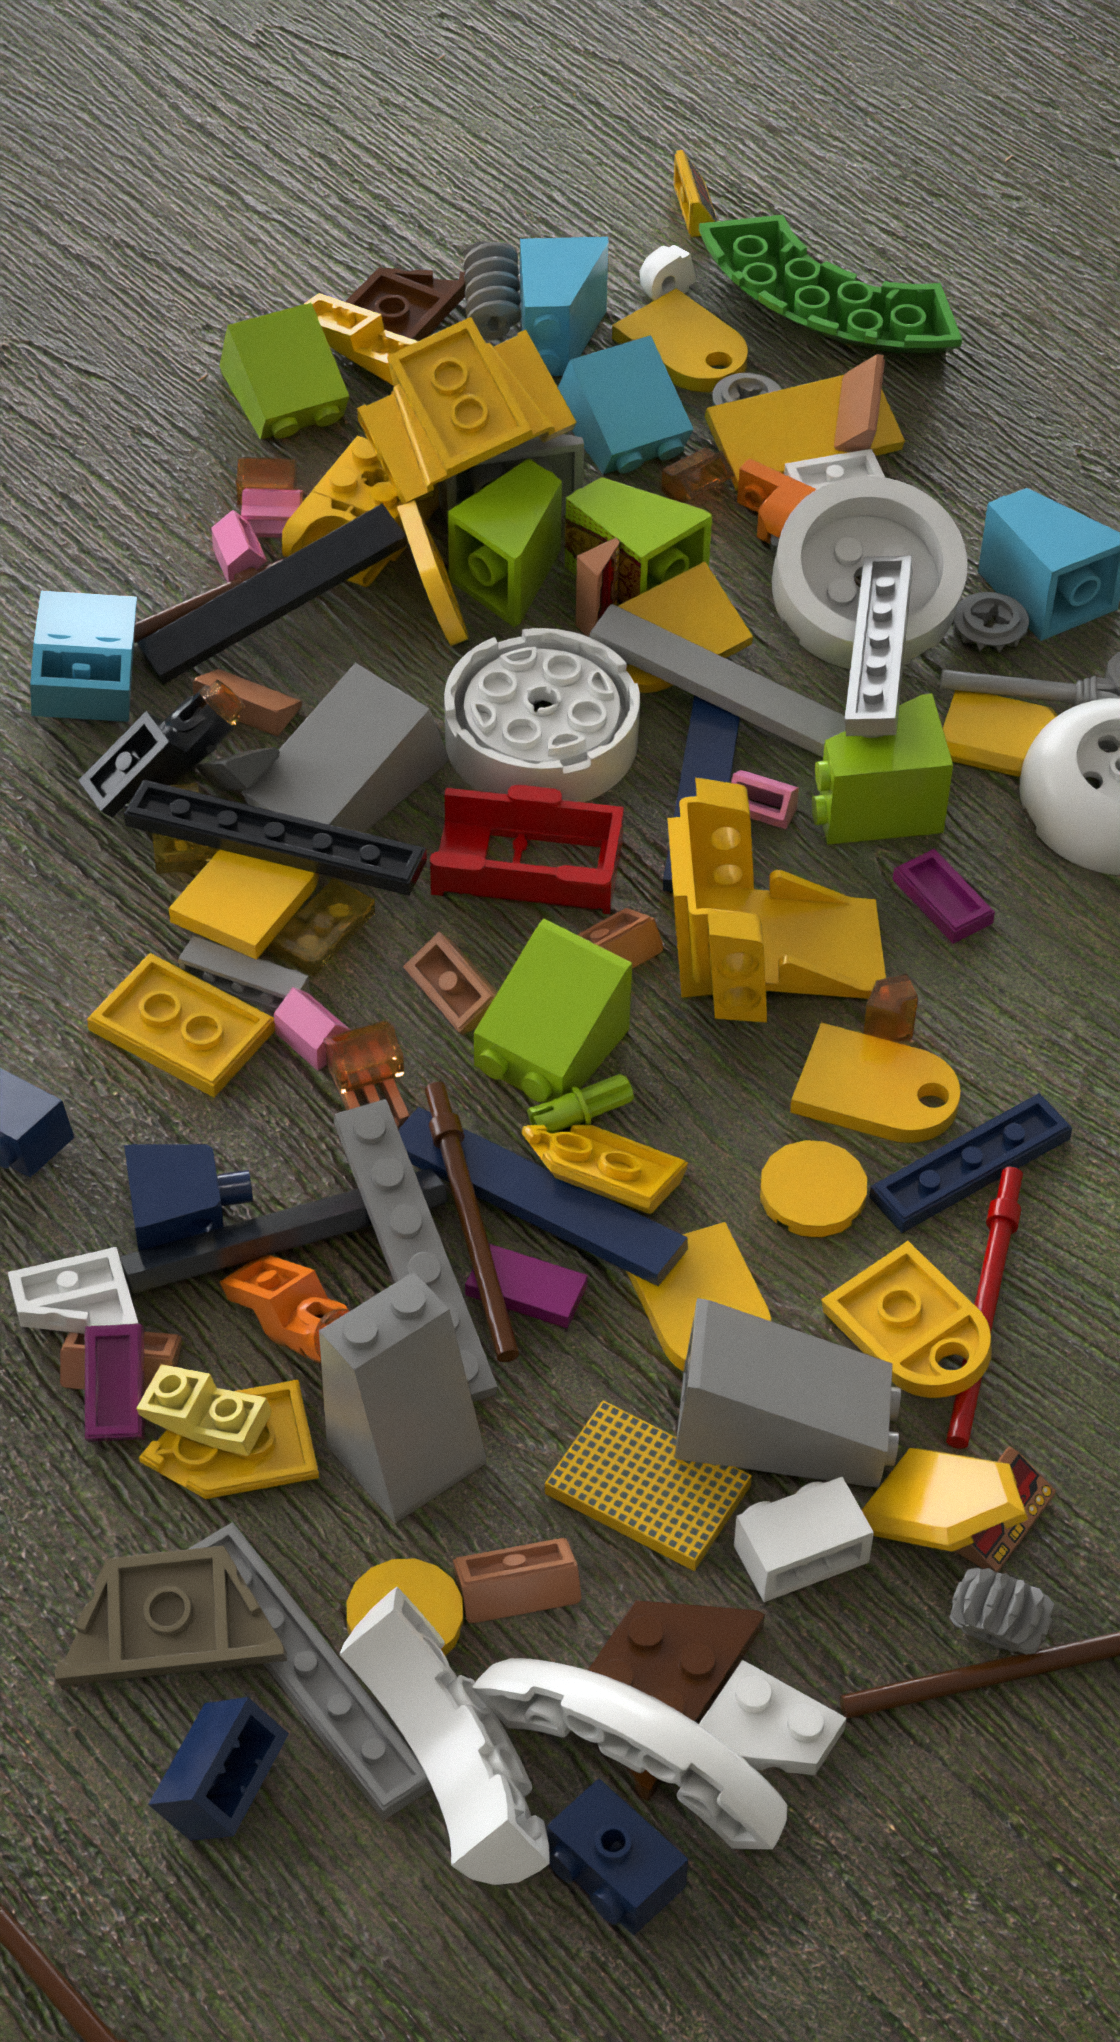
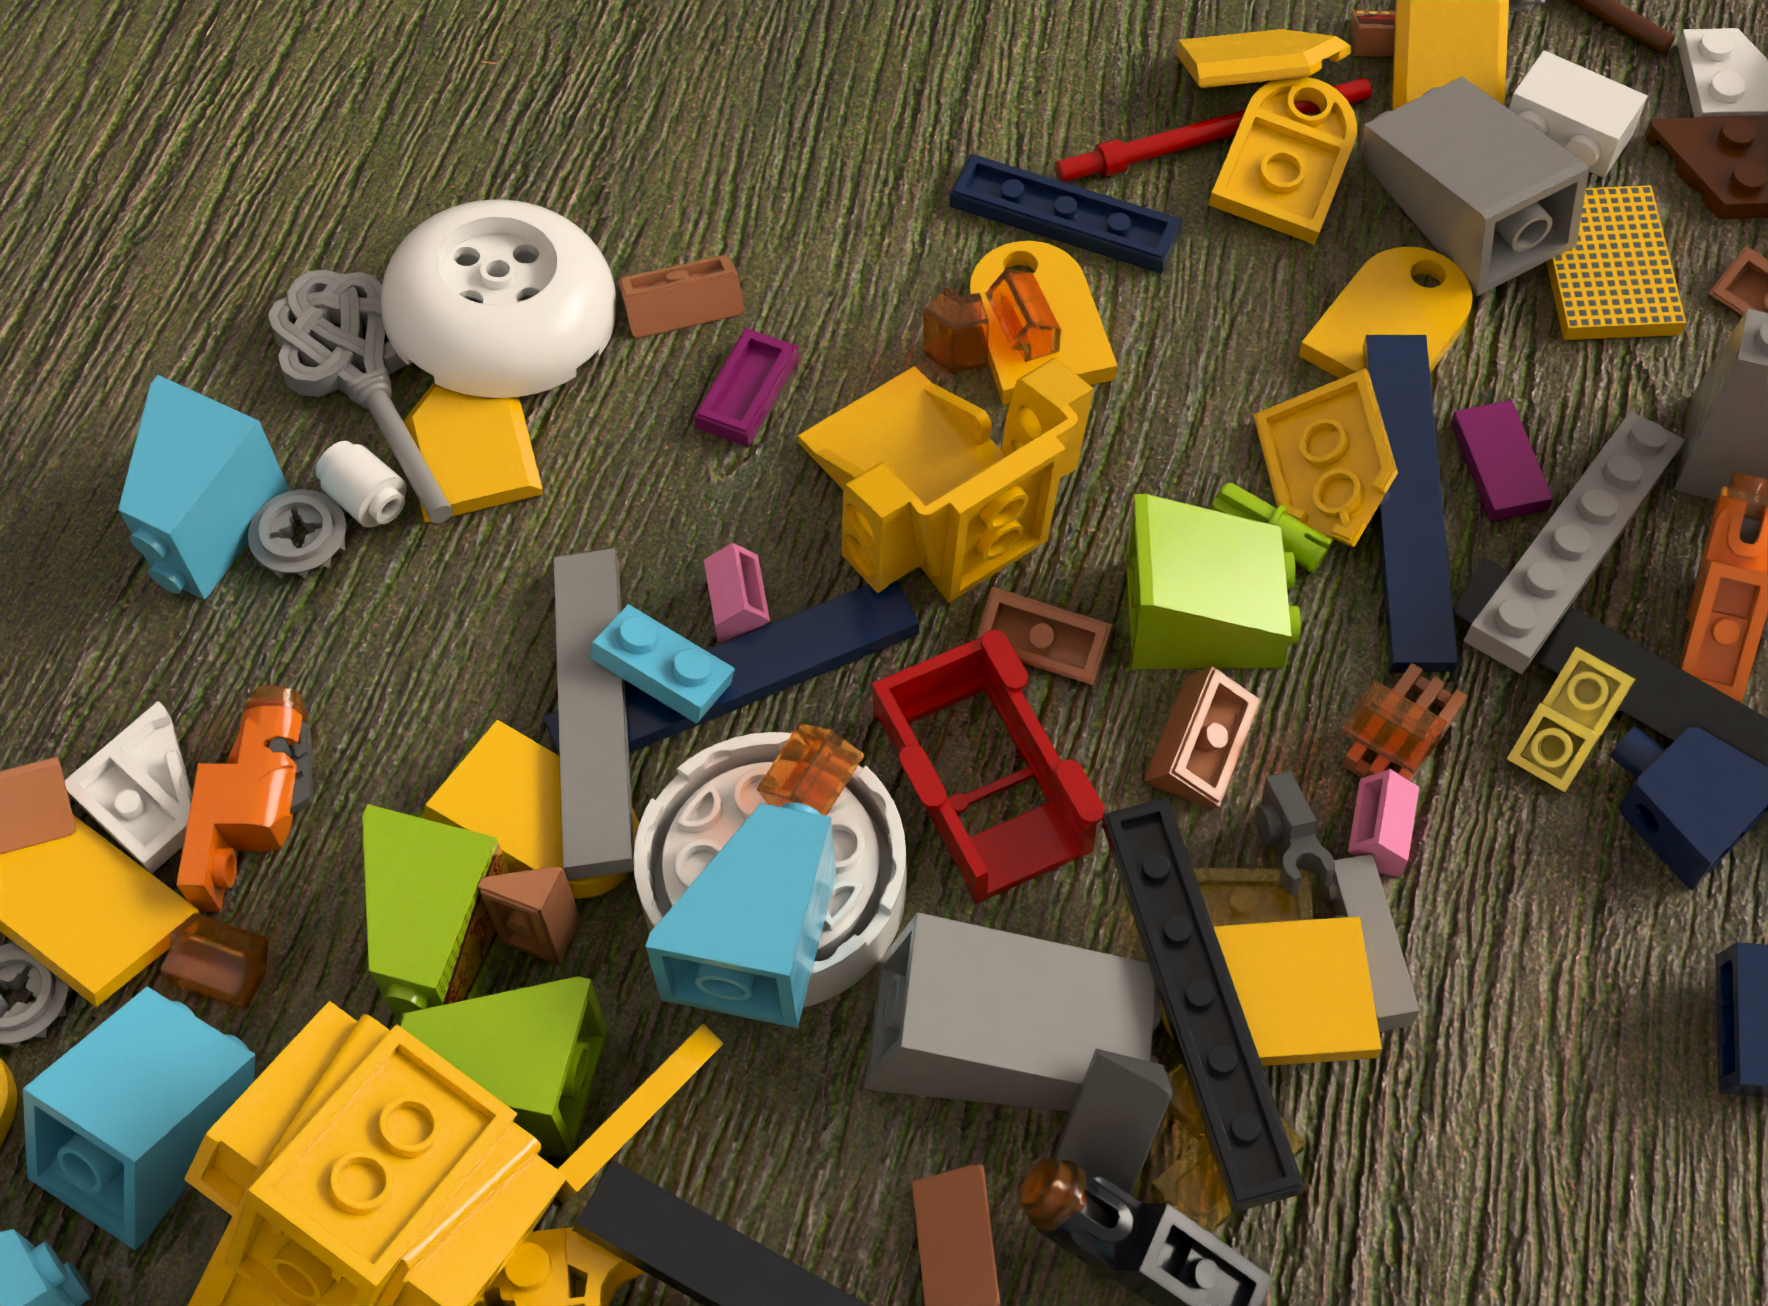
camera: 120 degrees left, 10 degrees up
(181, 1024) = (1478, 971): yellow tile -> none
(293, 1175) = (1571, 719): none -> light yellow slope
(345, 967) = (1290, 827): none -> dark grey plate
(448, 1135) = (1424, 592): reddish brown bar -> none
(480, 630) = (751, 919): none -> medium azure slope
(570, 720) = (810, 769): none -> clear orange piece
(728, 723) = (662, 663): none -> medium azure plate
(813, 1188) = (1198, 306): yellow tile -> none
(826, 548) = (341, 584): white brick -> none
(868, 1052) = (1021, 290): none -> clear orange piece
(879, 647) = (487, 520): plate -> none
(886, 782) = (642, 470): lime slope -> none
(1003, 654) = (361, 483): none -> white brick
(1033, 1356) = (1258, 56): none -> yellow tile
(1061, 899) = (681, 296): none -> nougat slope

